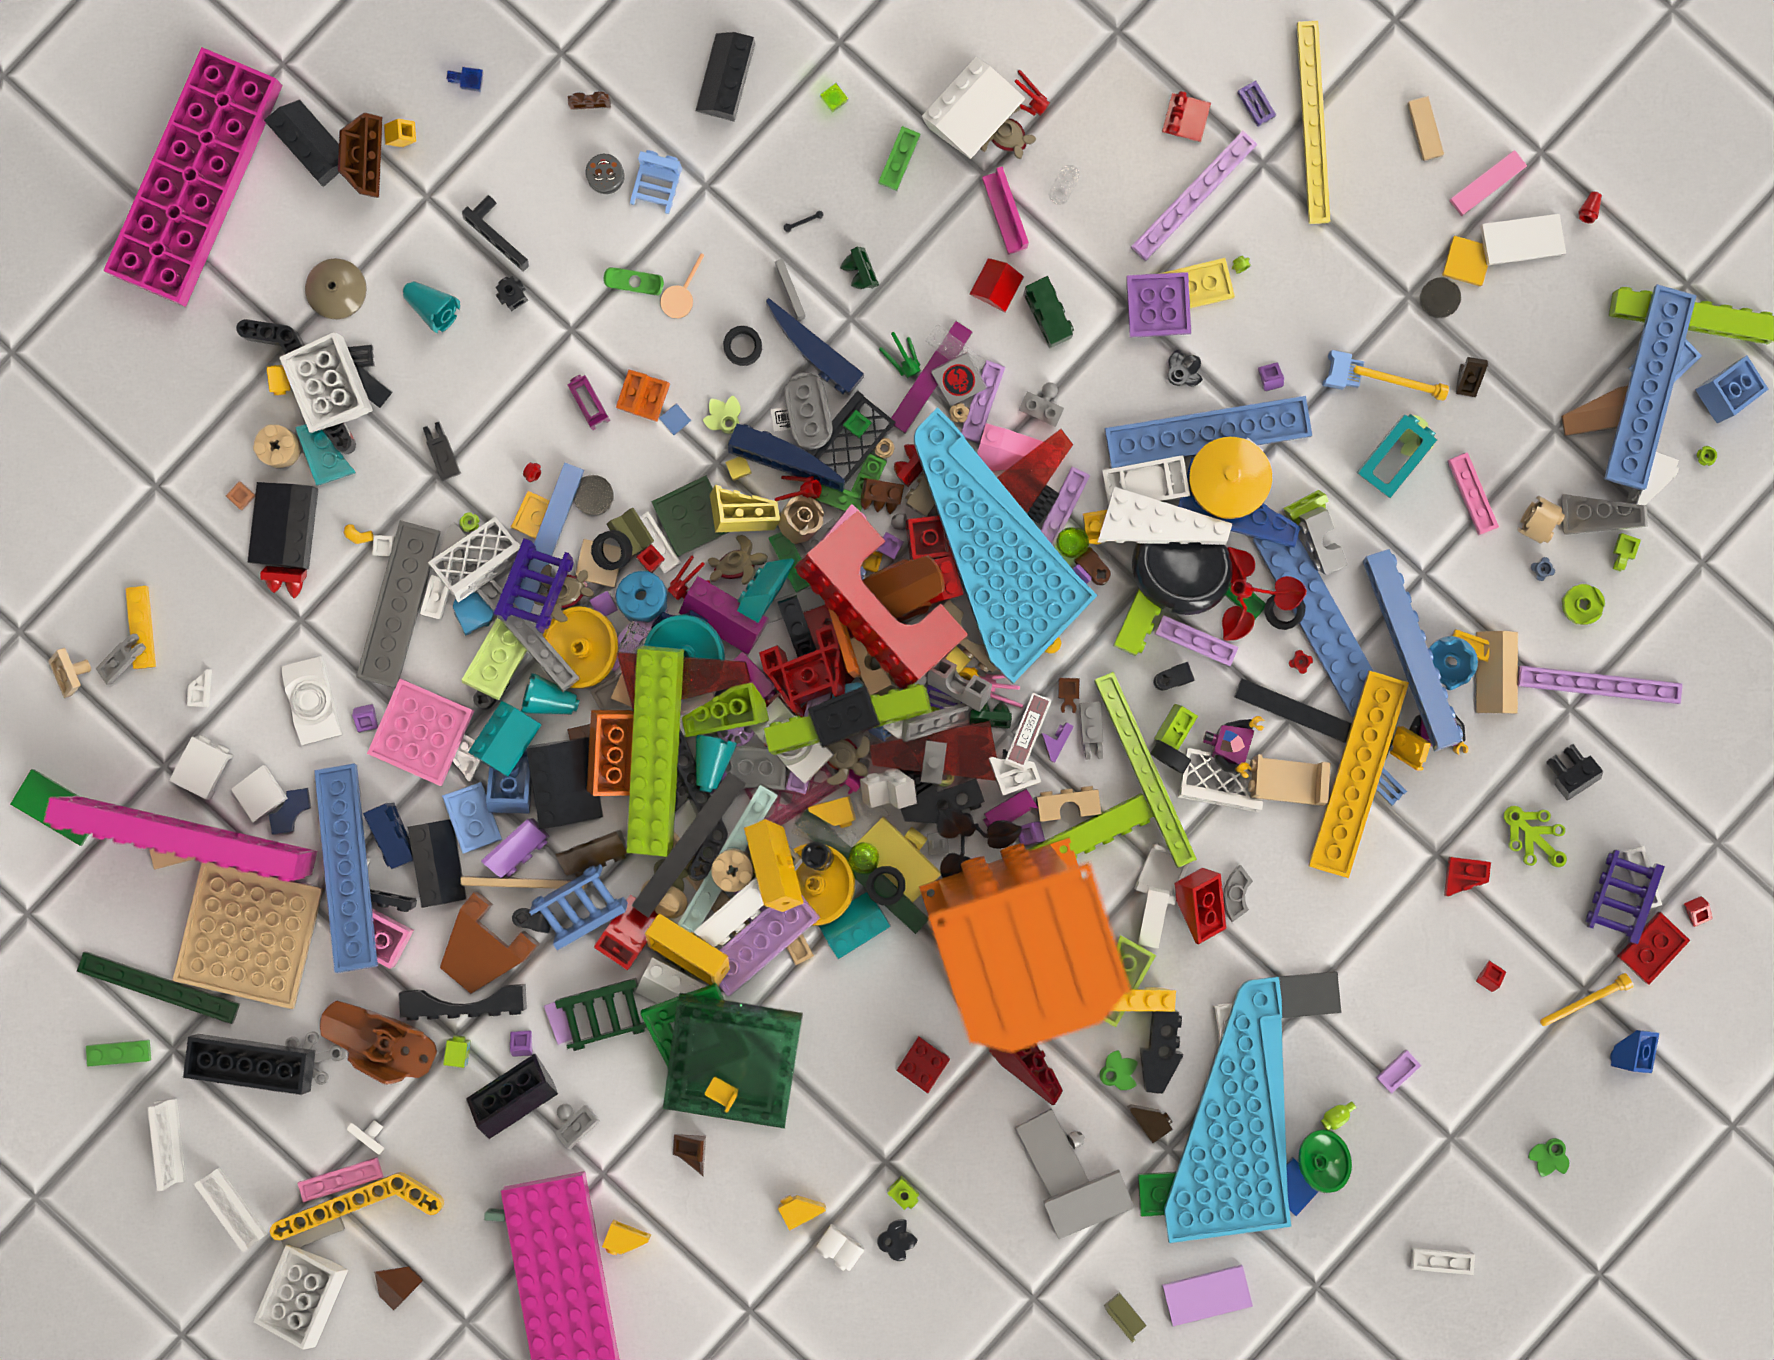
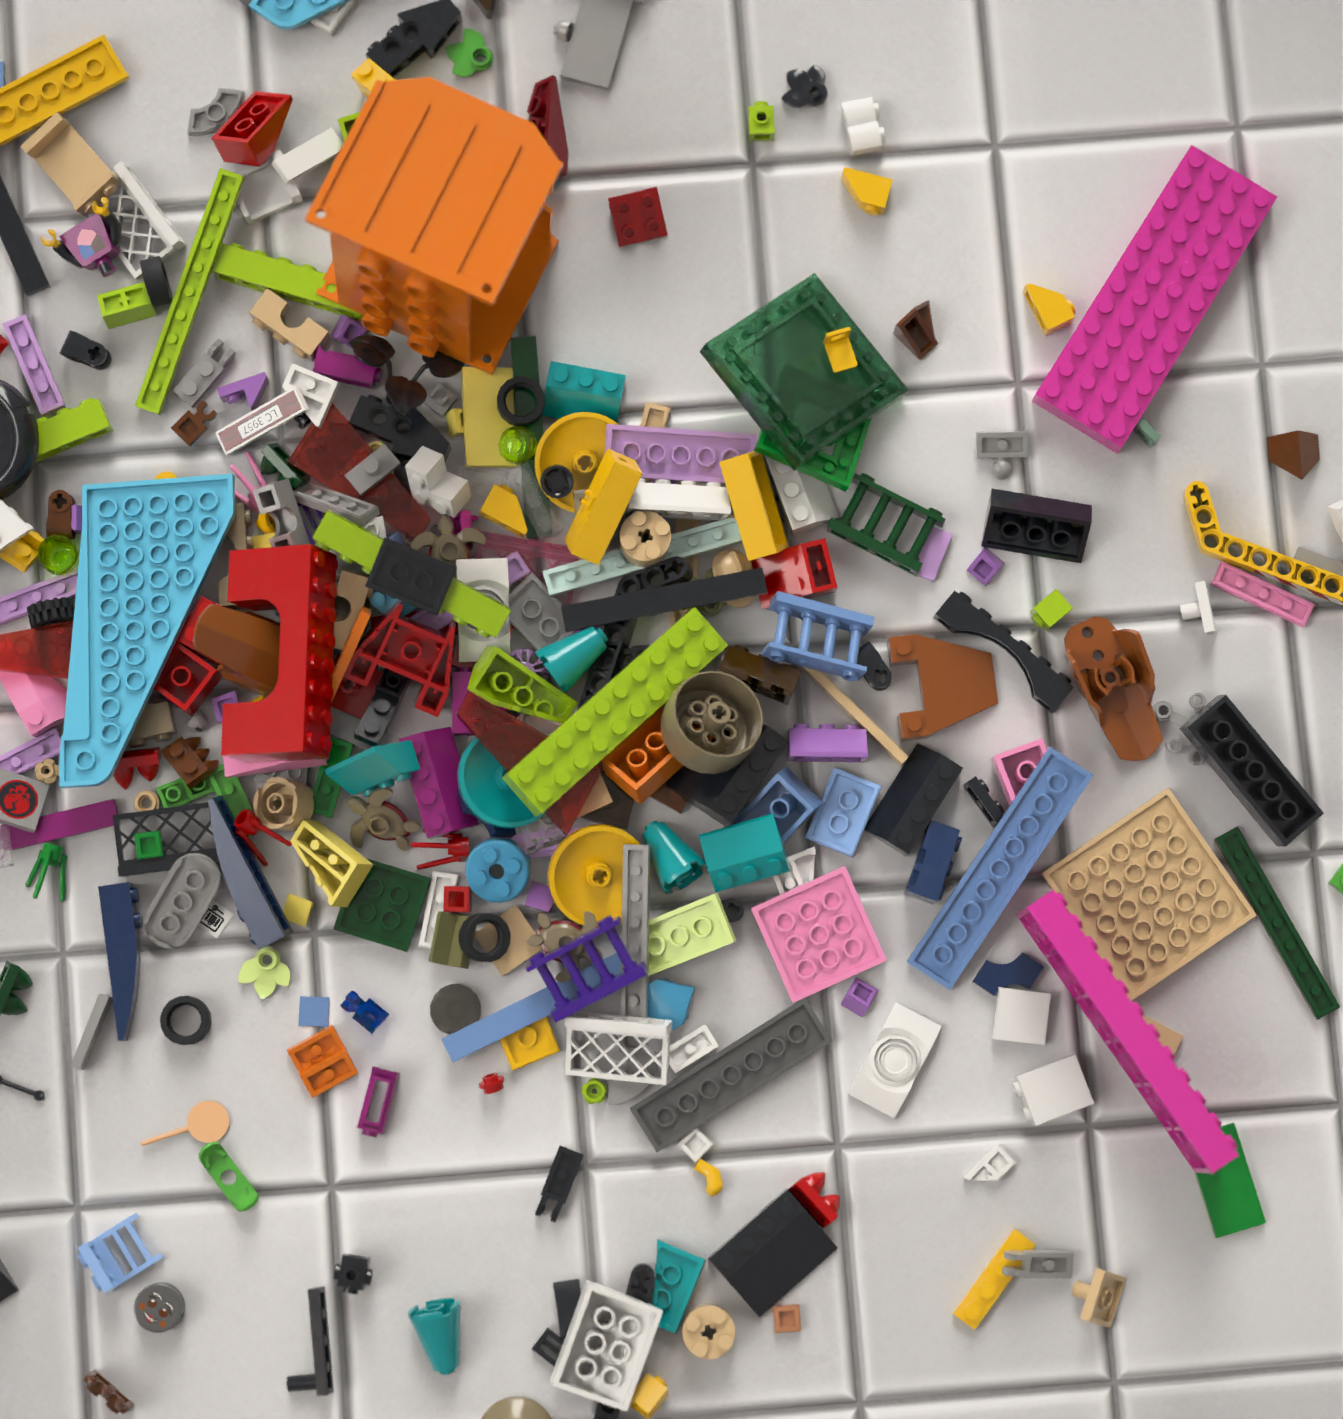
camera: 135 degrees left, 5 degrees down
(584, 816) = (724, 705): none -> dark tan wheel
(640, 445) = (366, 1013): none -> clear blue plate

